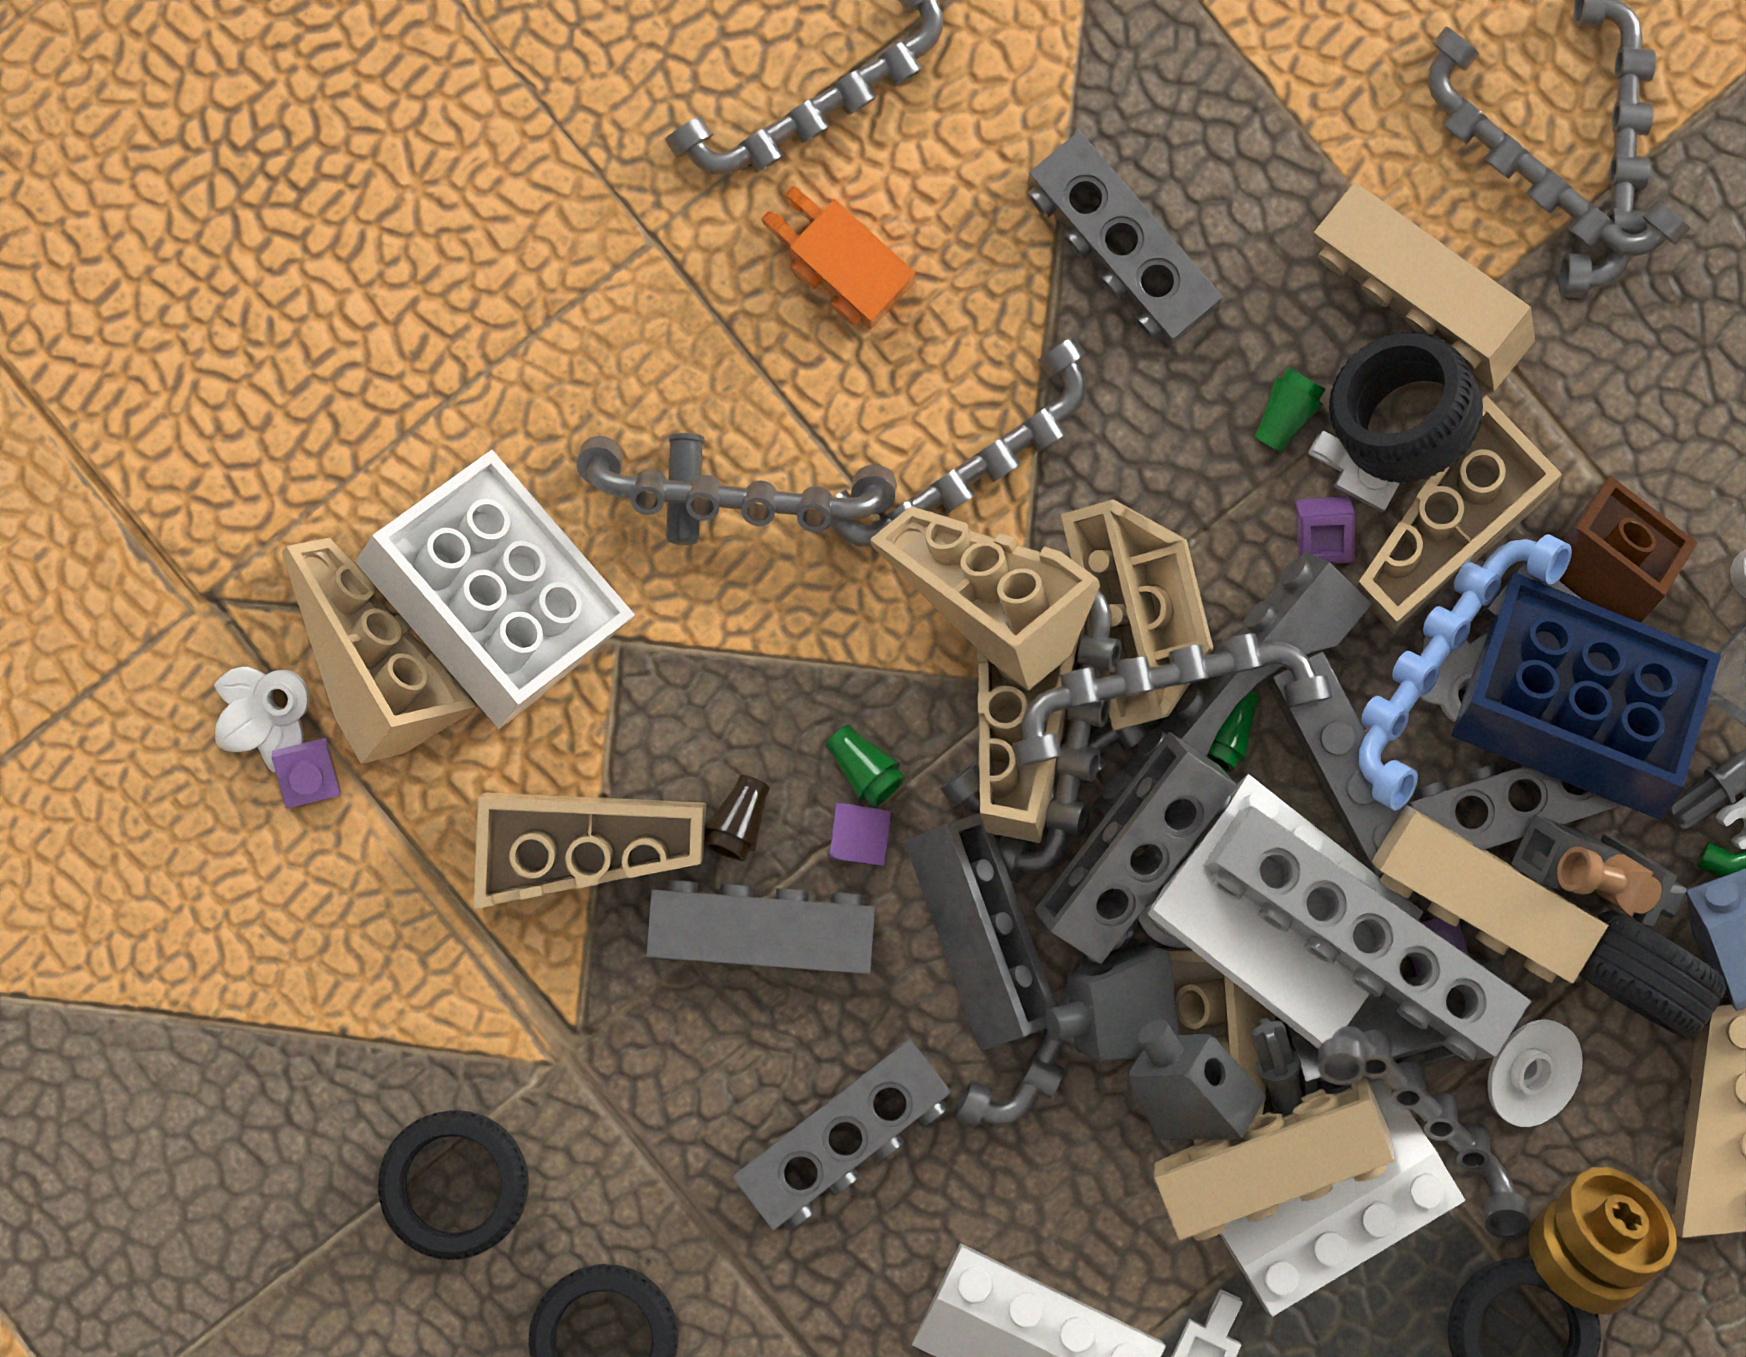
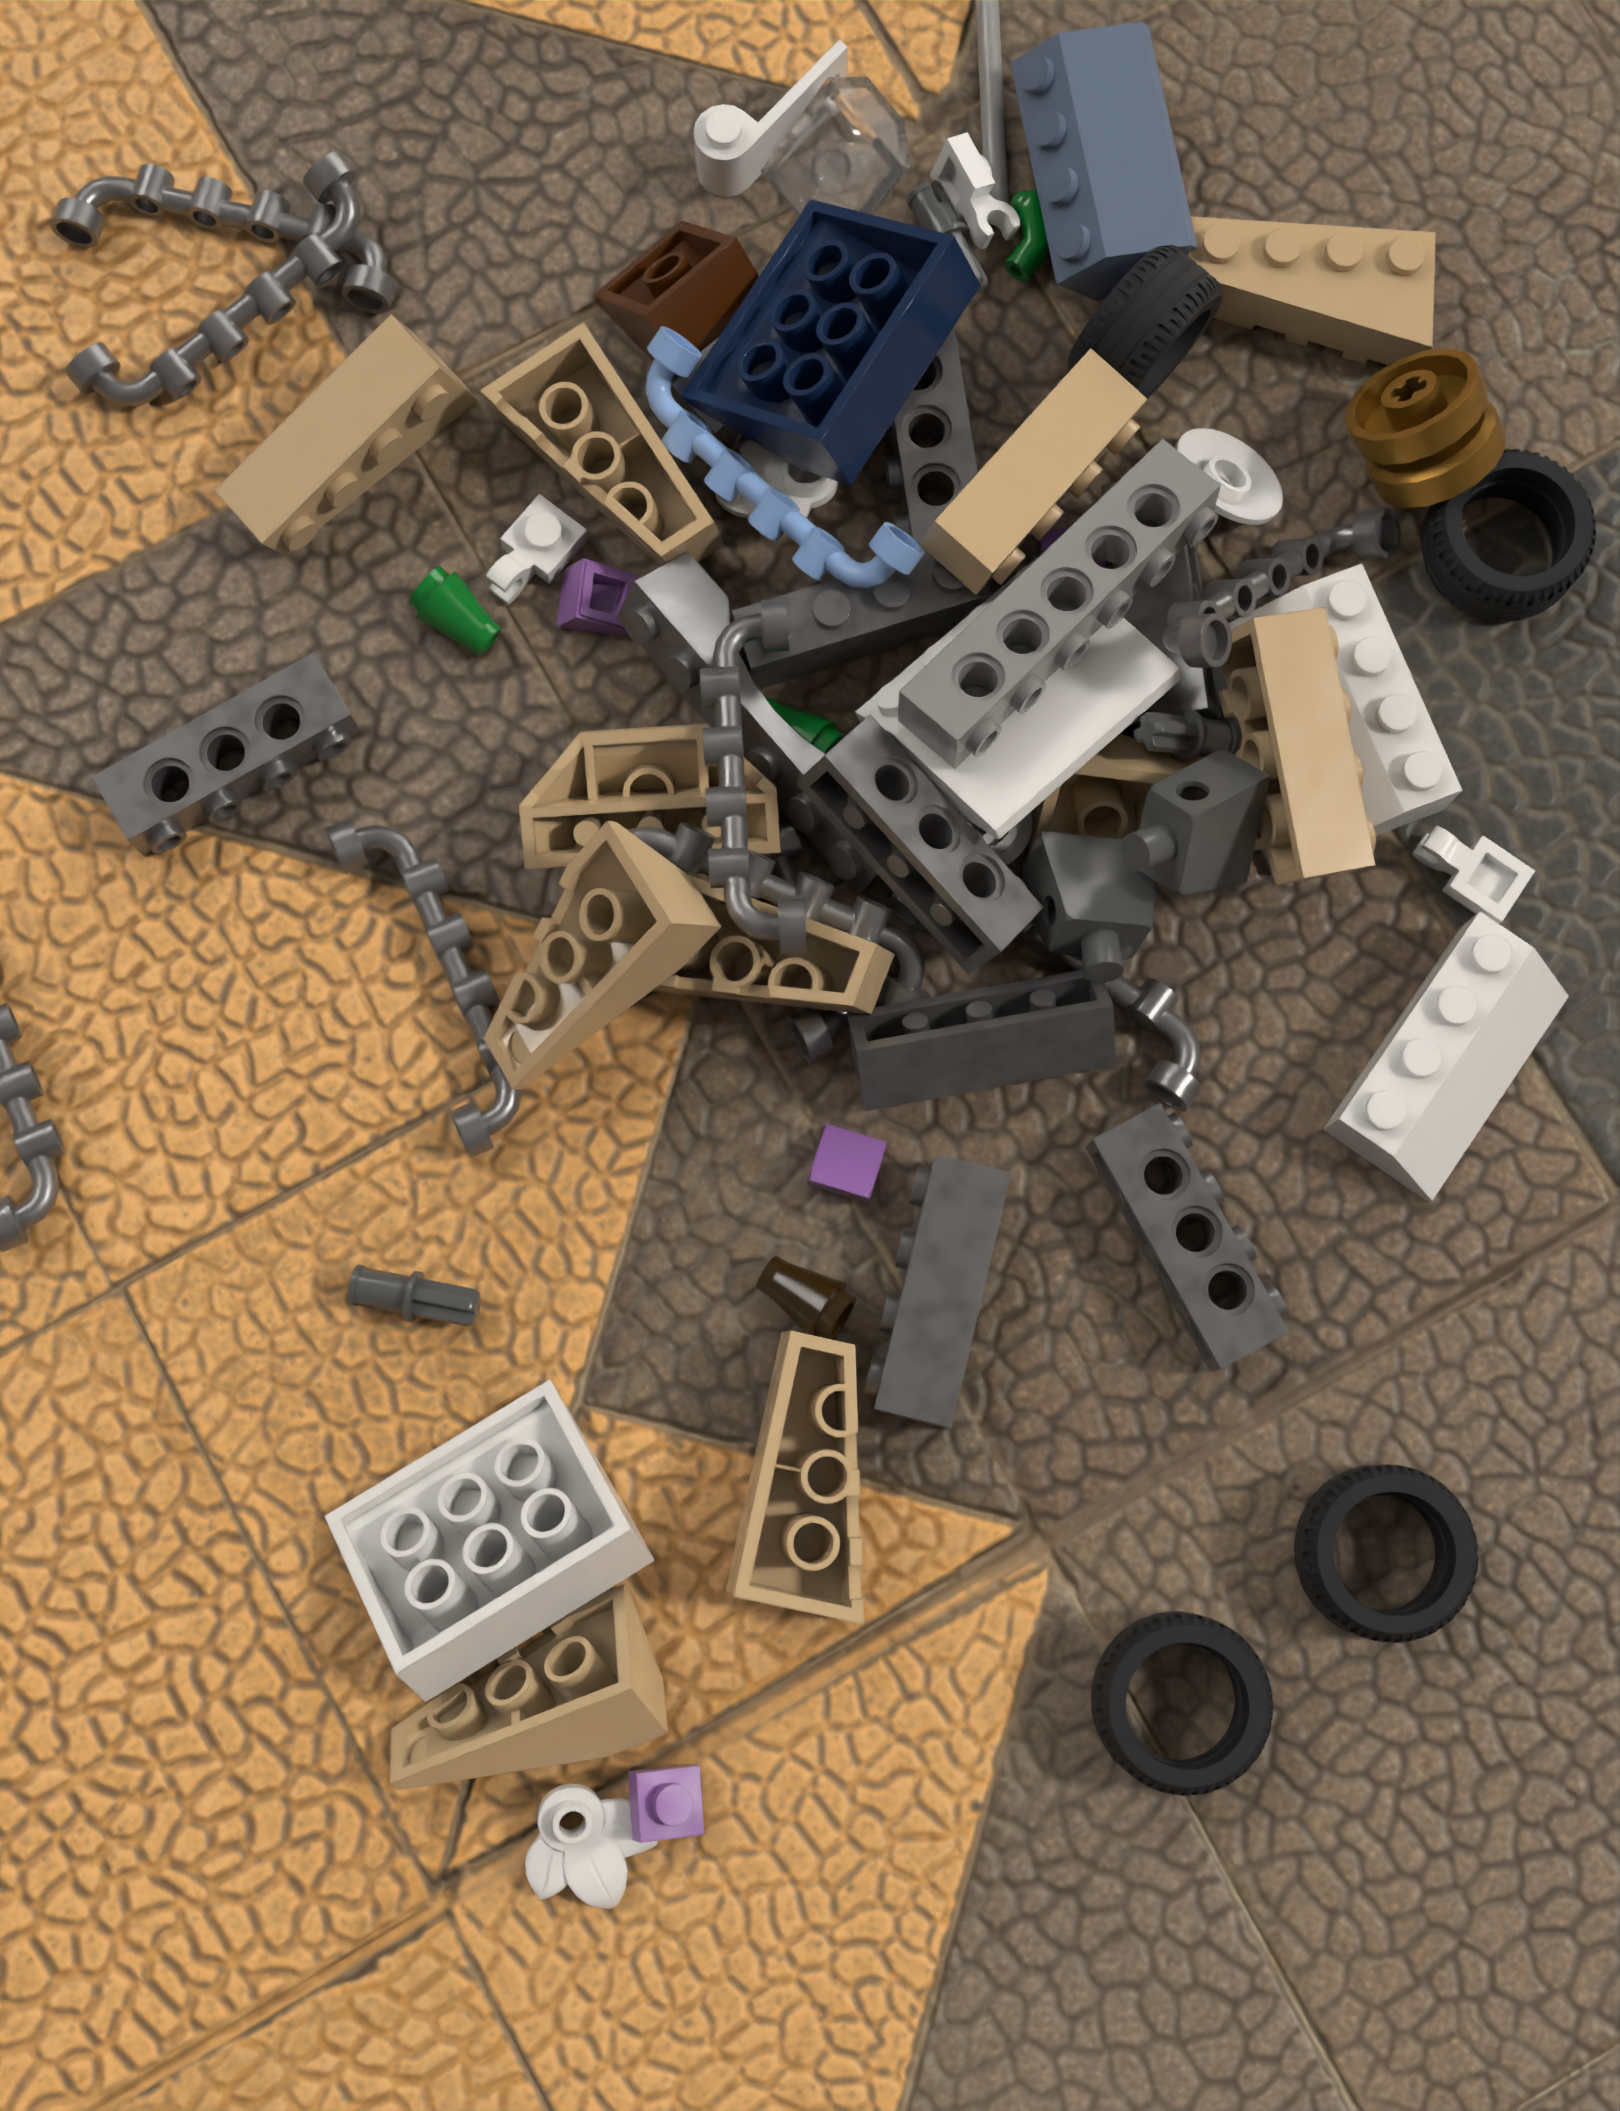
camera: 80 degrees left, 5 degrees down
(602, 459) = (367, 1388): flat silver bar -> none
(843, 259) = (183, 1070): orange hinge -> none
(866, 767) = (770, 1142): green cone -> none
(1382, 369) = (425, 466): black tyre -> none
(1585, 864) = (1022, 361): hips -> none

